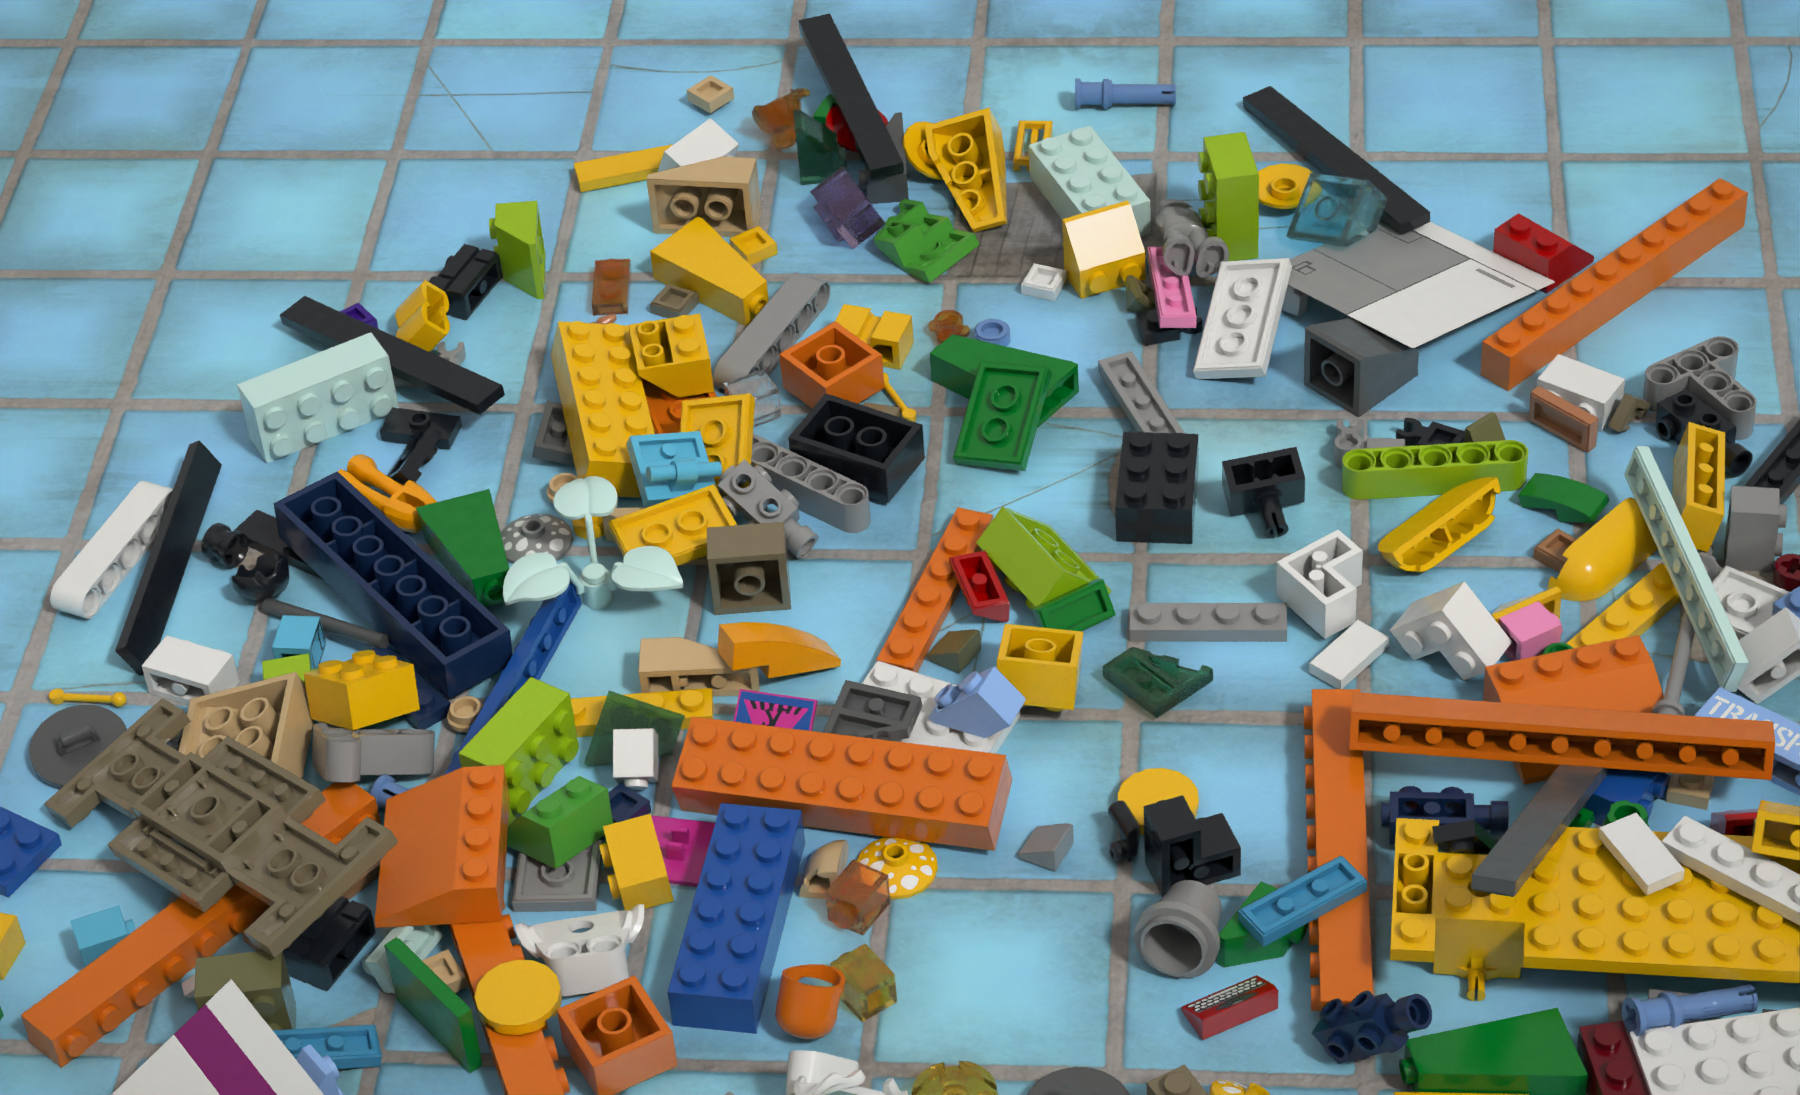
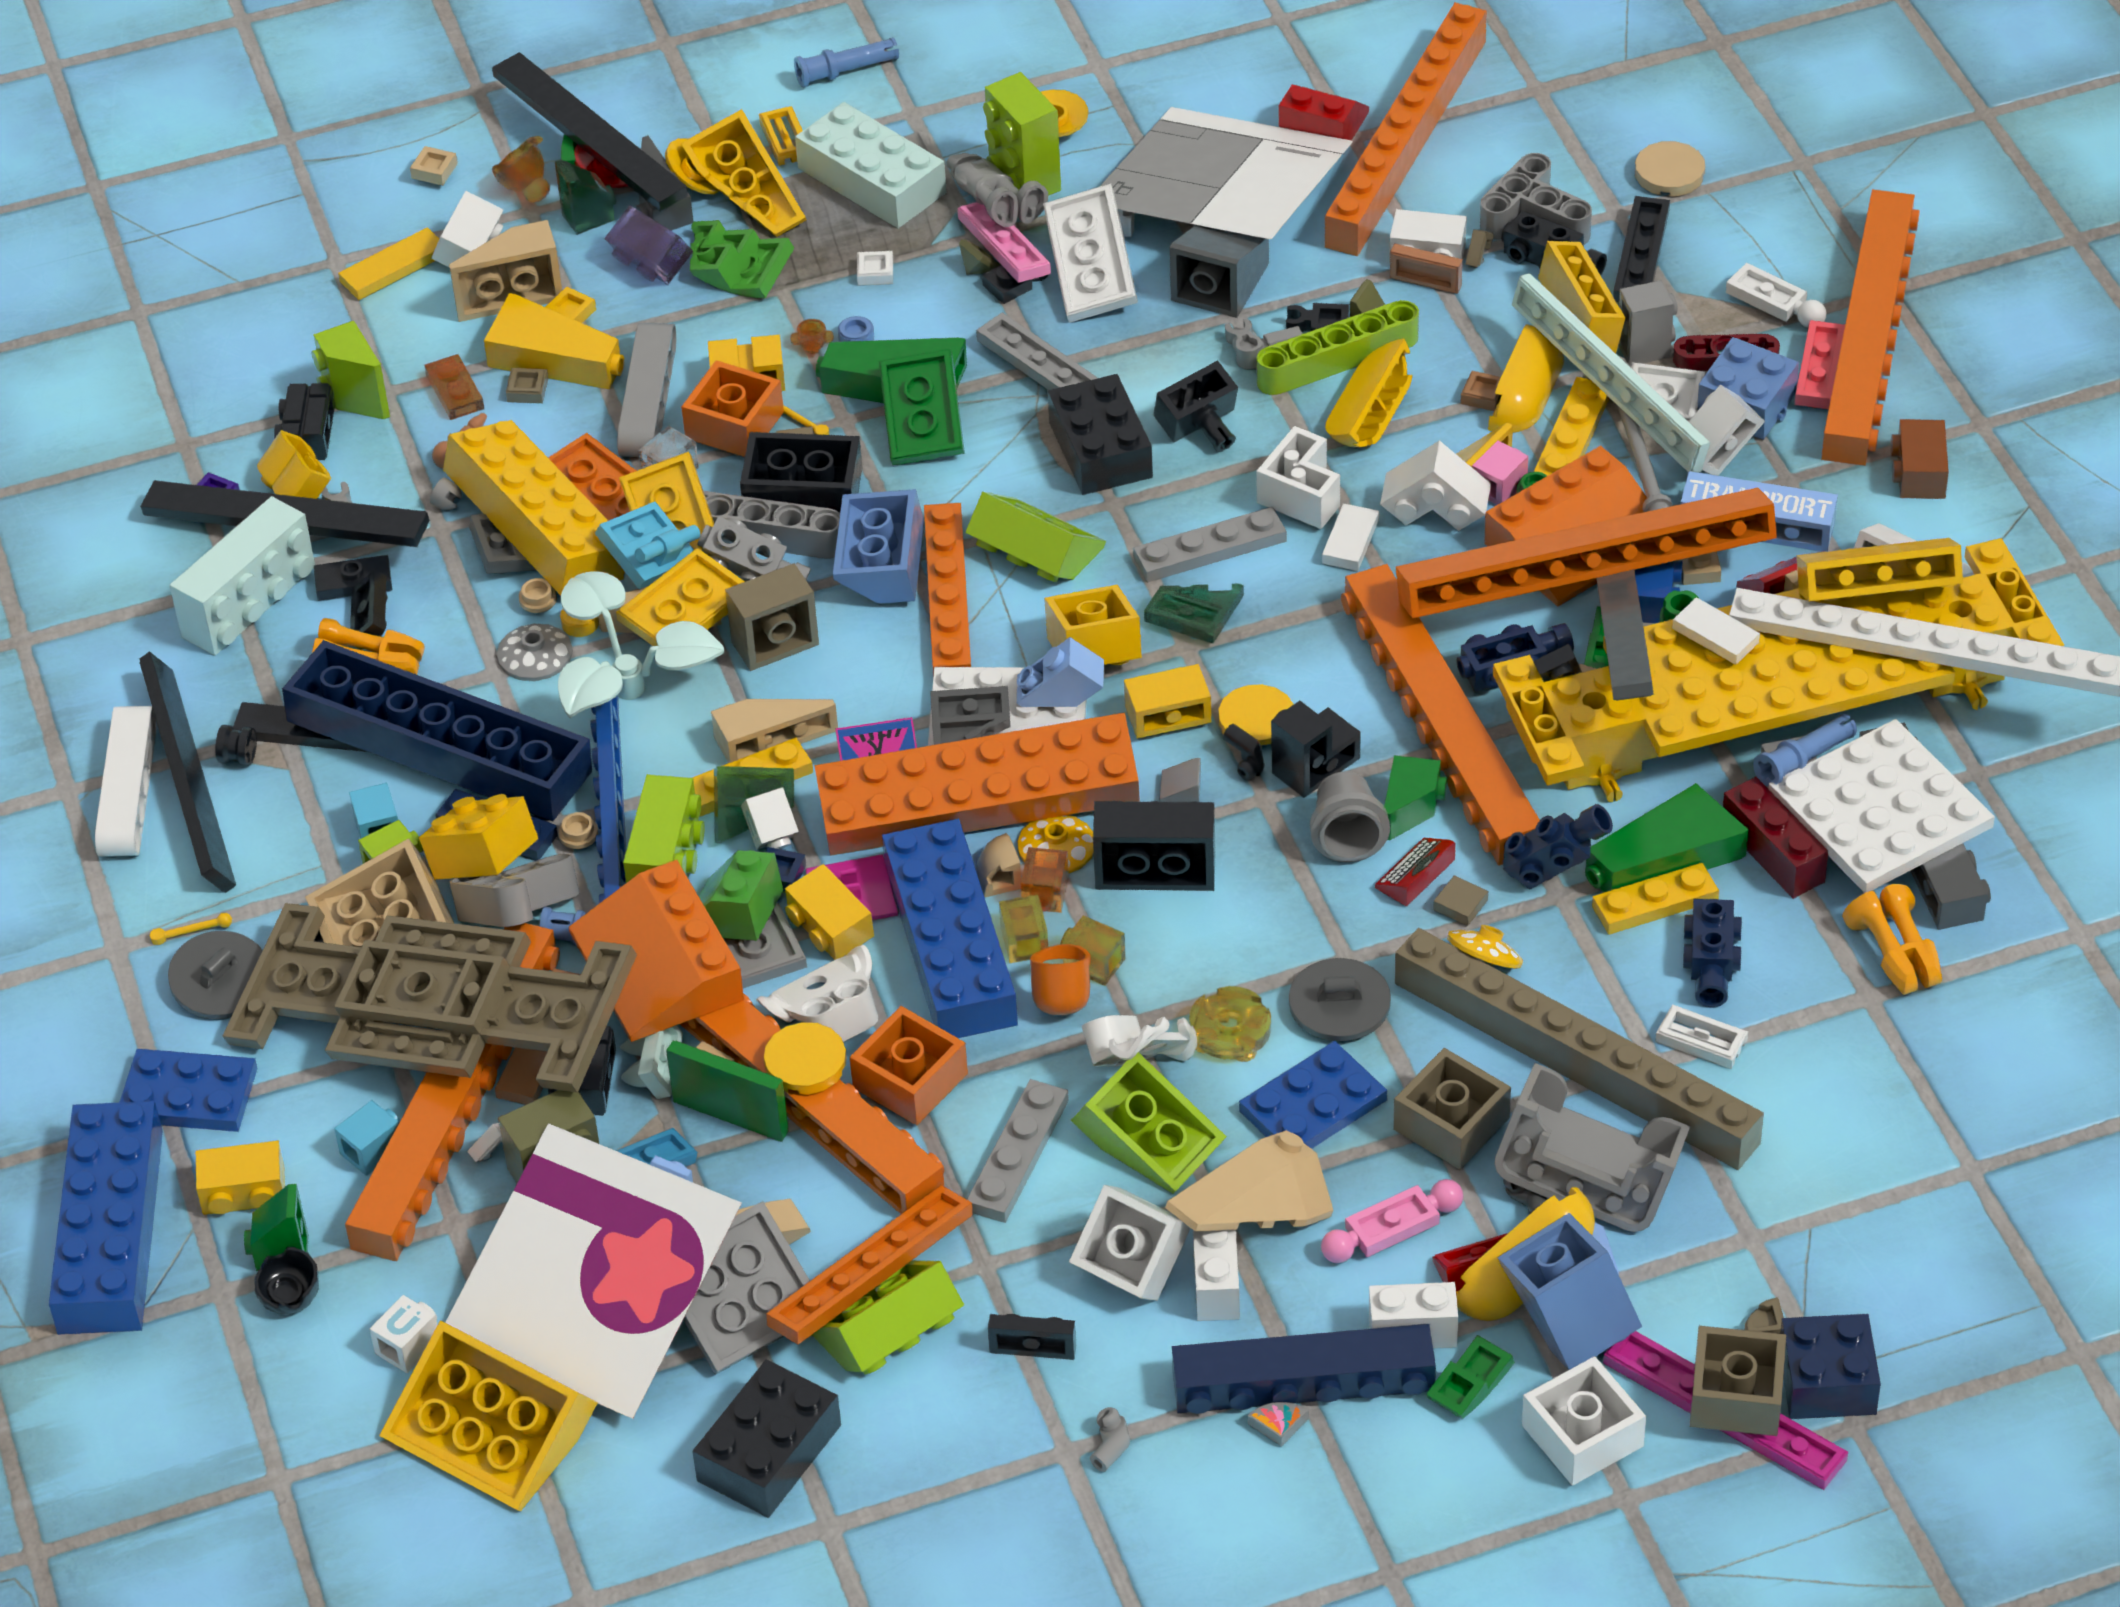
camera: 25 degrees left, 5 degrees up
(188, 670) = (283, 872): white brick -> none
(265, 580) = (298, 763): black hair -> none
(329, 624) = (396, 788): dark grey bar -> none
(469, 543) = (485, 666): green slope -> none
(541, 377) = (445, 494): none -> light grey hinge
(673, 354) = (576, 434): yellow slope -> none
(773, 649) = (839, 684): light orange slope -> none
(809, 936) = (1023, 927): none -> clear yellow brick
(889, 531) = (880, 545): none -> medium blue slope
(956, 649) = (997, 635): olive slope -> none
(974, 896) = (1154, 845): none -> black brick
(981, 586) = (992, 570): red slope -> none
(1073, 759) = (1164, 698): none -> yellow brick
(1076, 608) = (1089, 566): green tile -> none
(1102, 249) = (923, 222): slope -> none
(1258, 1052) = (1460, 900): none -> dark tan tile
(1302, 900) = (1440, 760): dark azure tile -> none
(1332, 155) = (1085, 74): black tile -> none
(1336, 210) = (1121, 125): clear light blue slope -> none
(1568, 497) = (1471, 340): green slope -> none

